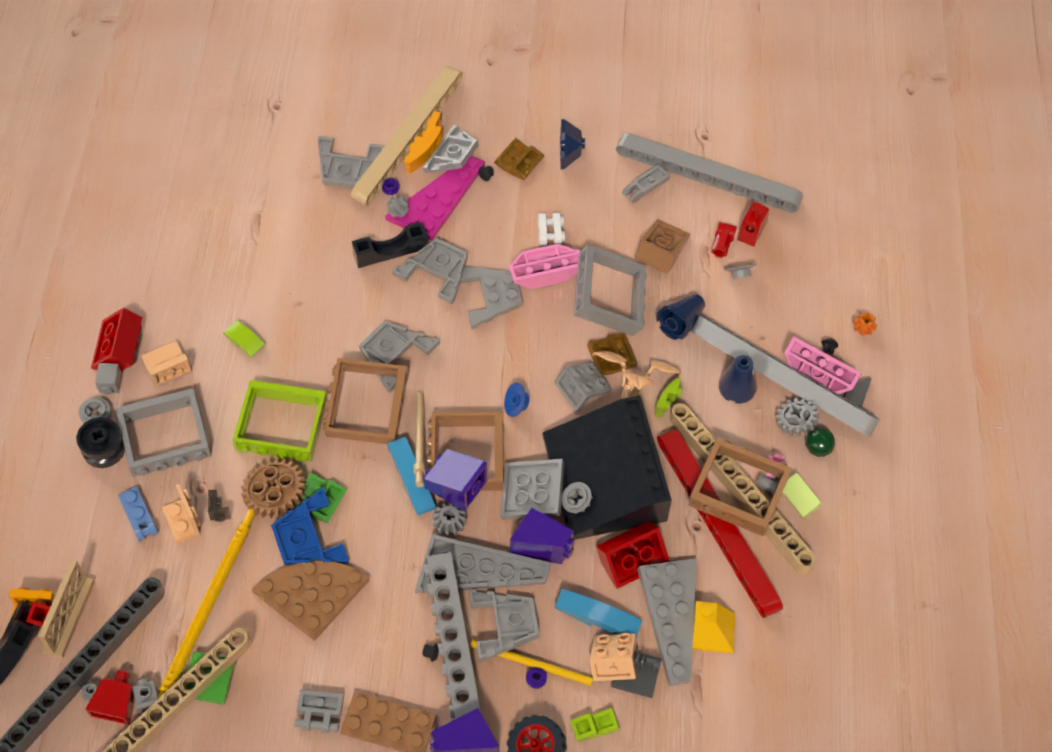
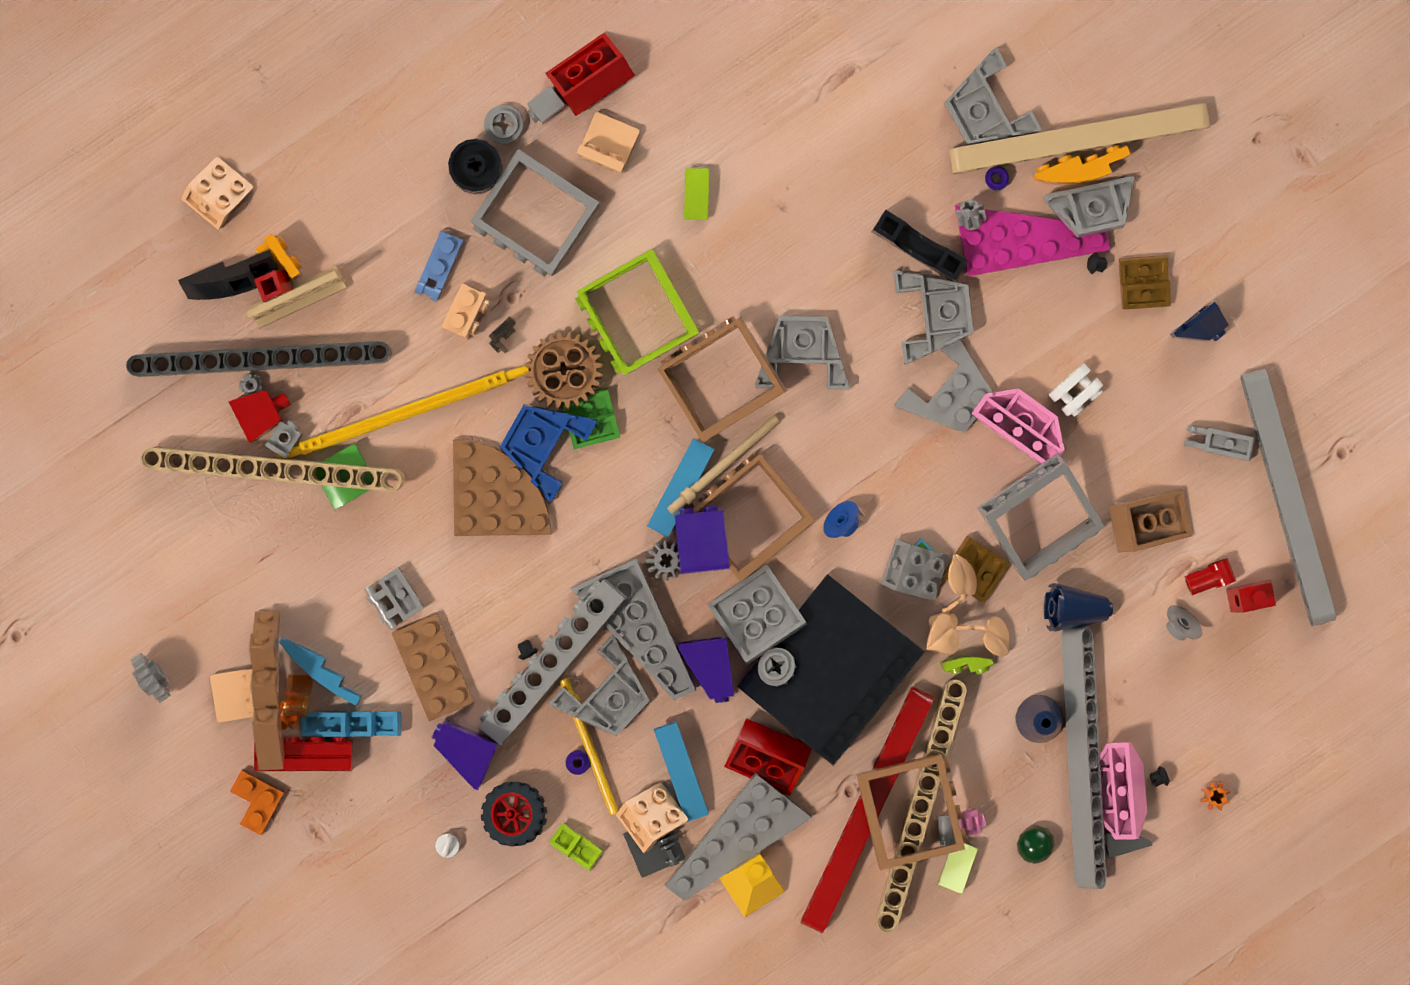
camera: 50 degrees right, 30 degrees up
(797, 417) = (1035, 801): light grey gear -> none

